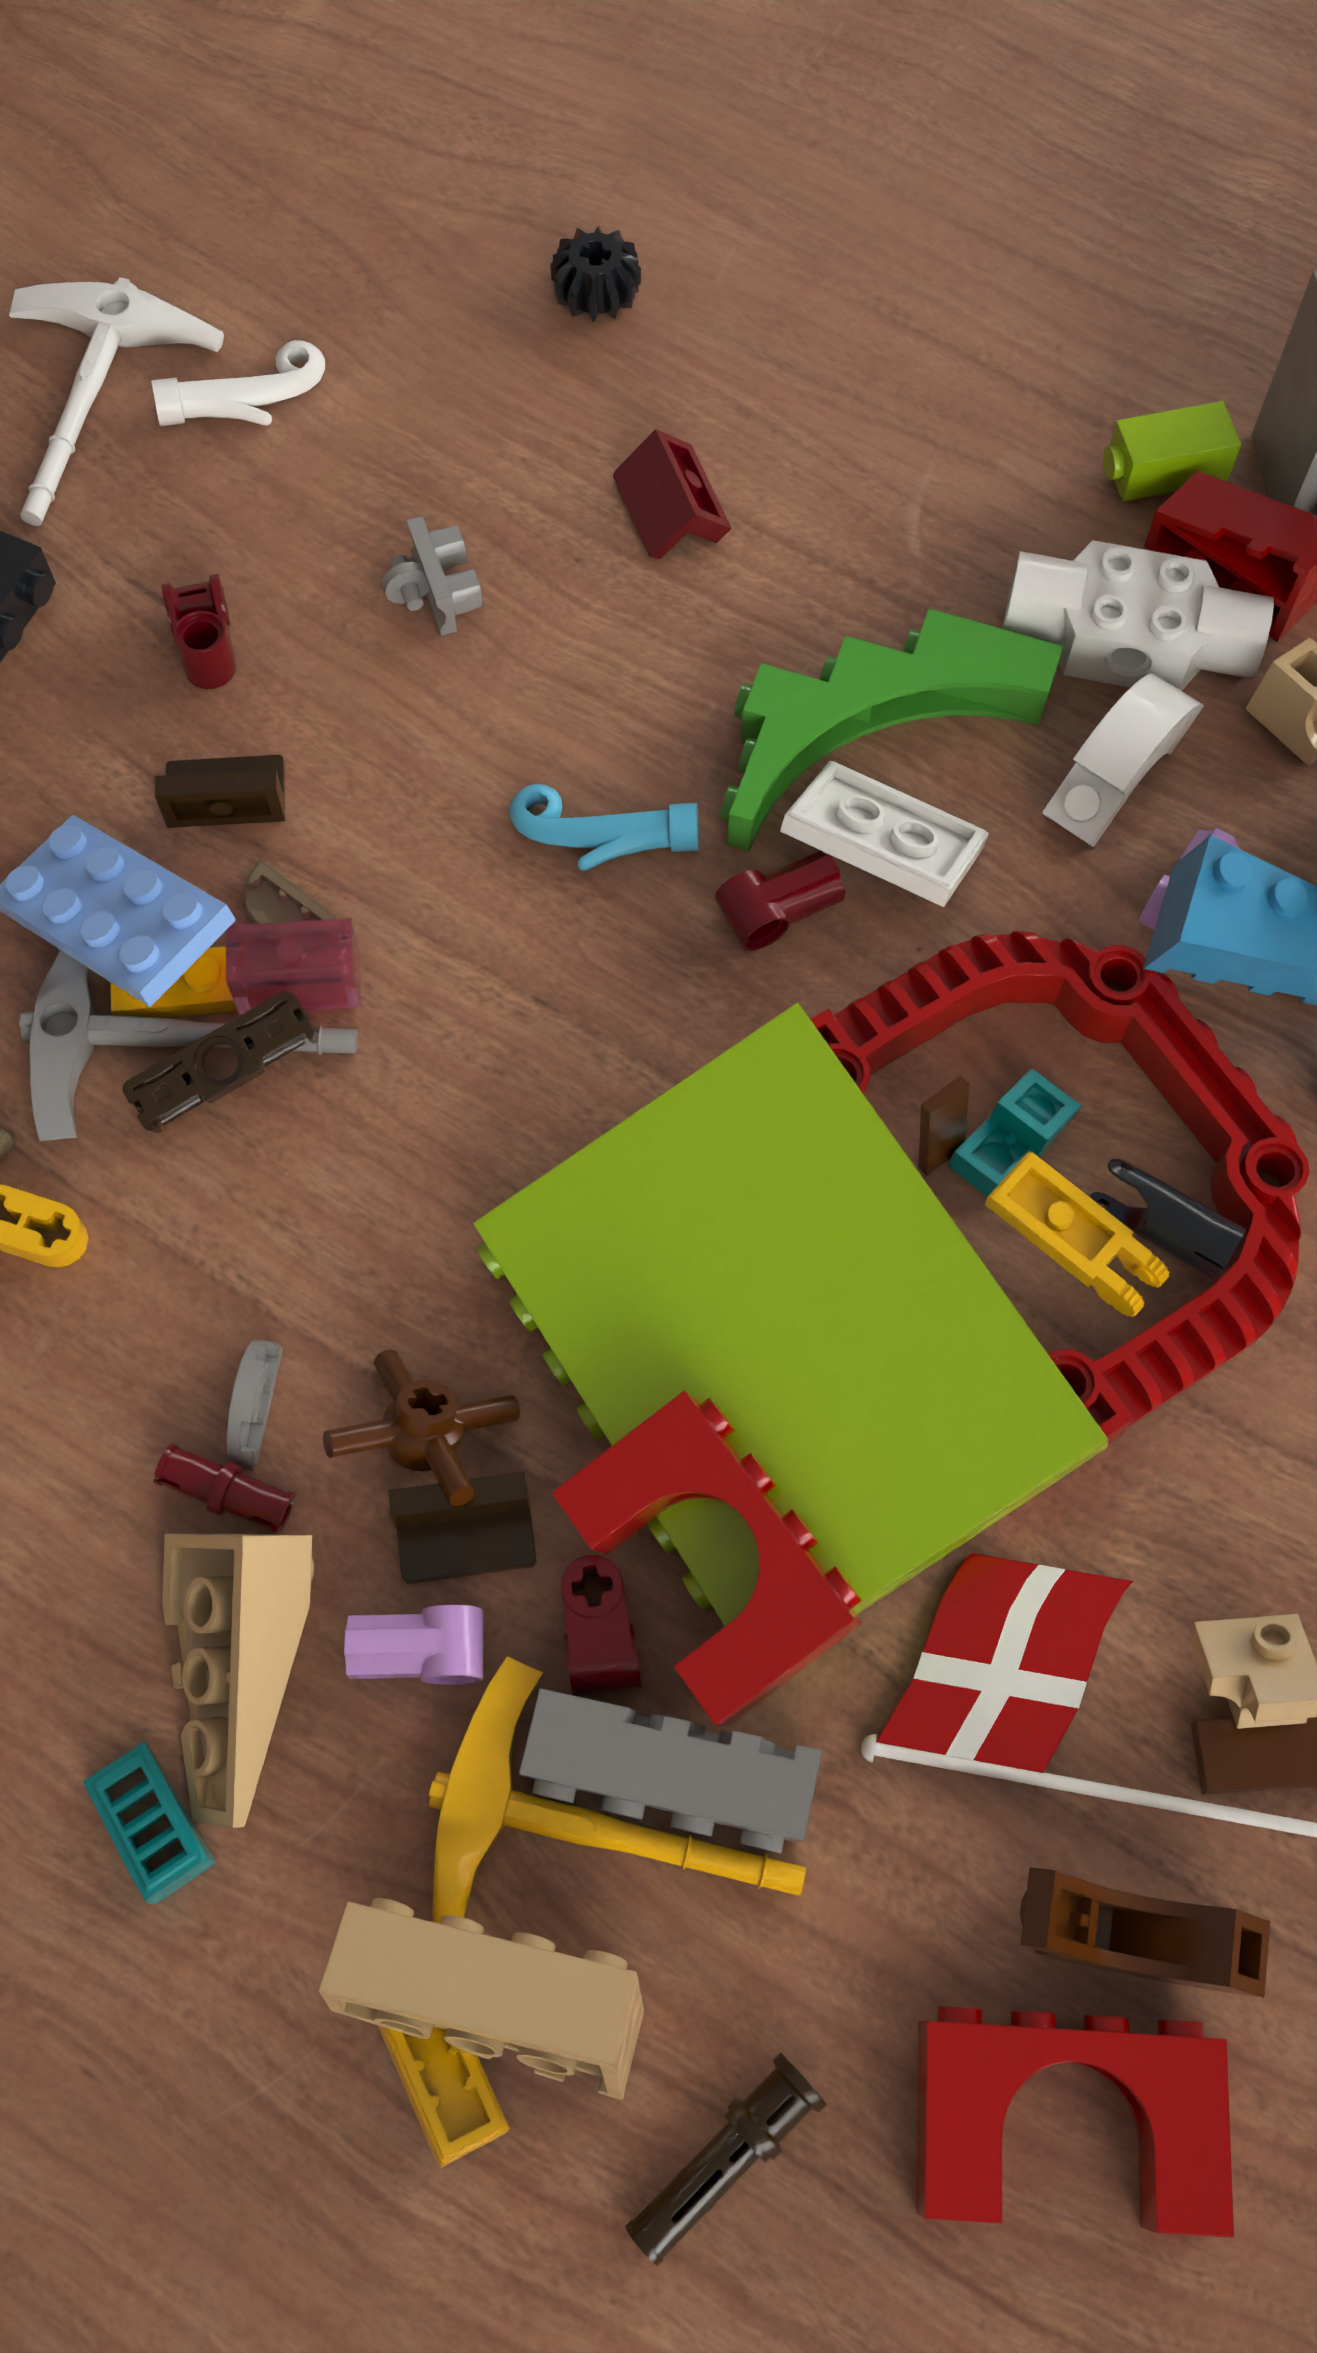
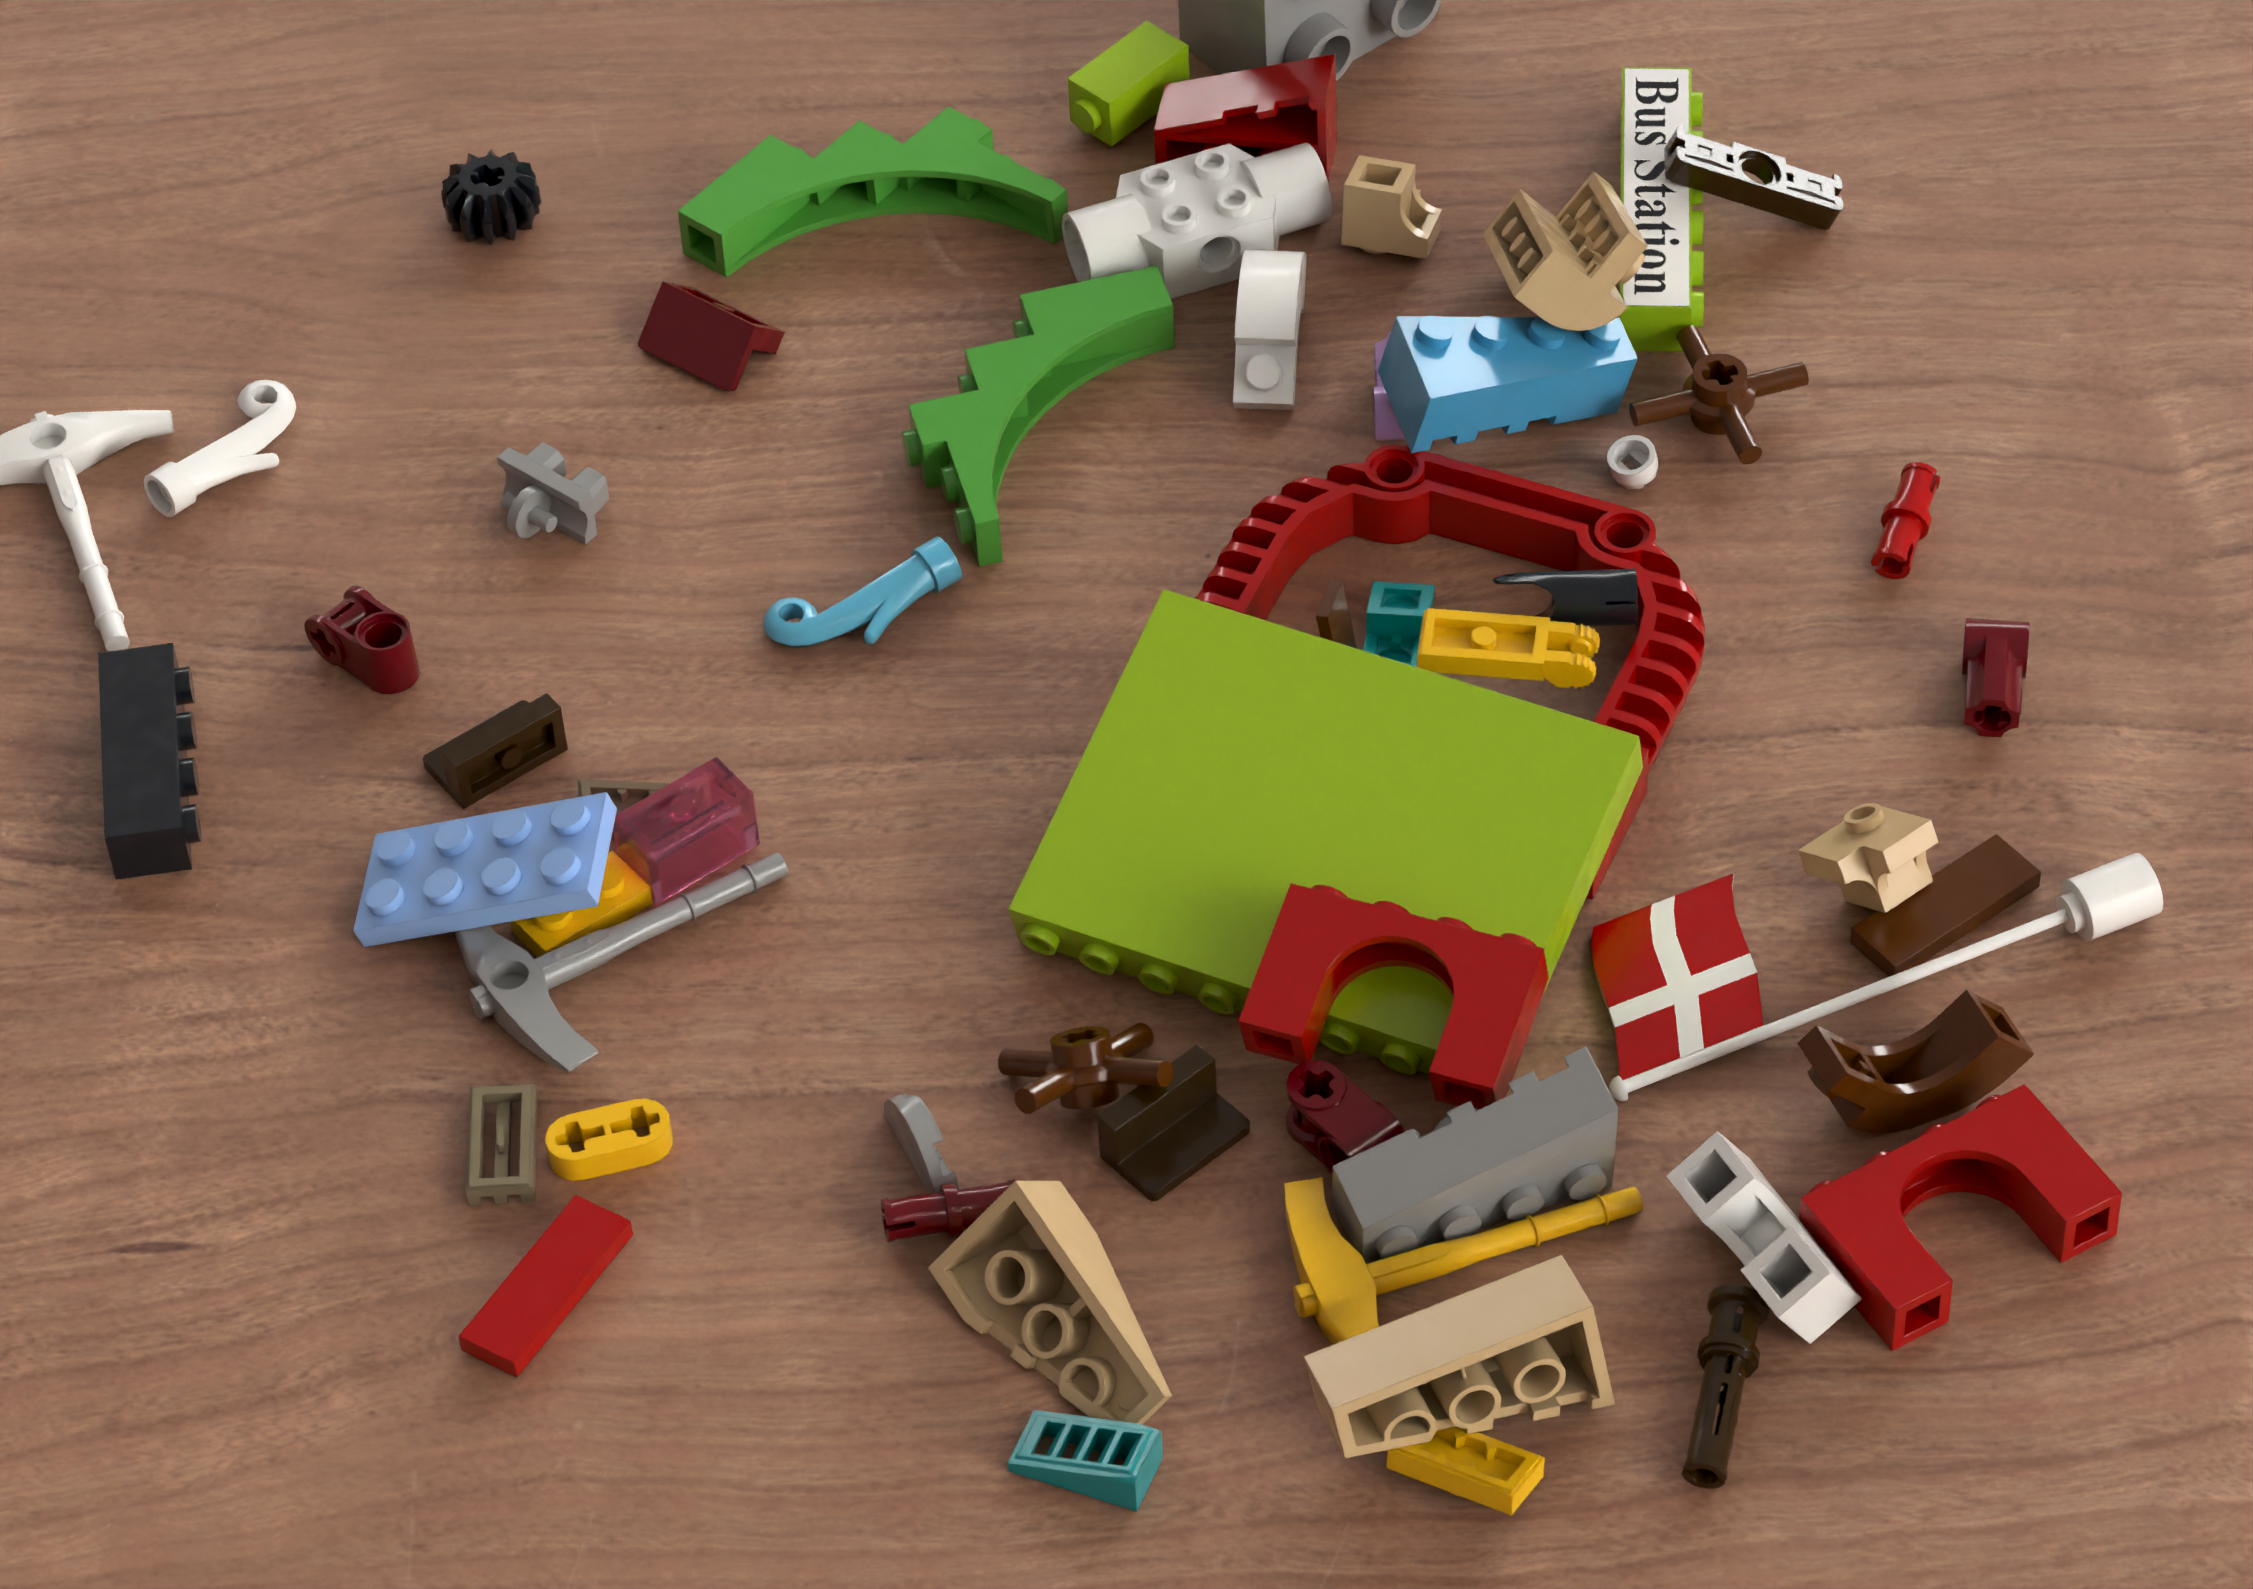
camera: 30 degrees left, 20 degrees down
(182, 1080) = (658, 961): dark brown piece -> none
(437, 1645) = (1218, 1209): lavender piece -> none
(766, 905) = (1058, 580): dark red piece -> none
(869, 2092) = (1766, 1236): none -> white arch
(885, 832) = (1115, 476): white tile -> none
(896, 415) = (865, 174): none -> bright green arch

